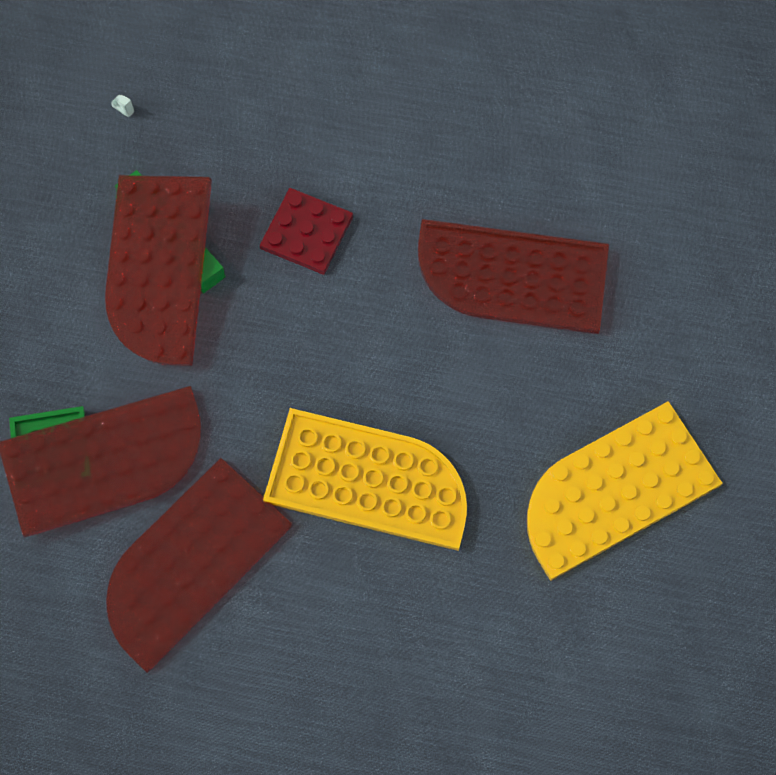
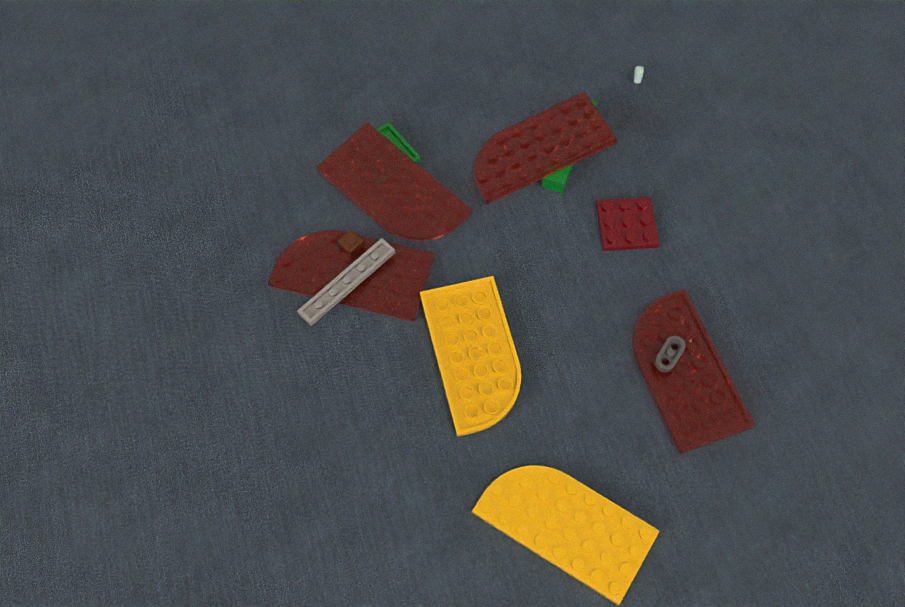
camera: 60 degrees right, 5 degrees down
(153, 545) = (350, 242): none -> reddish brown plate
(204, 576) = (346, 282): none -> light grey plate
(490, 279) = (669, 355): none -> dark grey plate

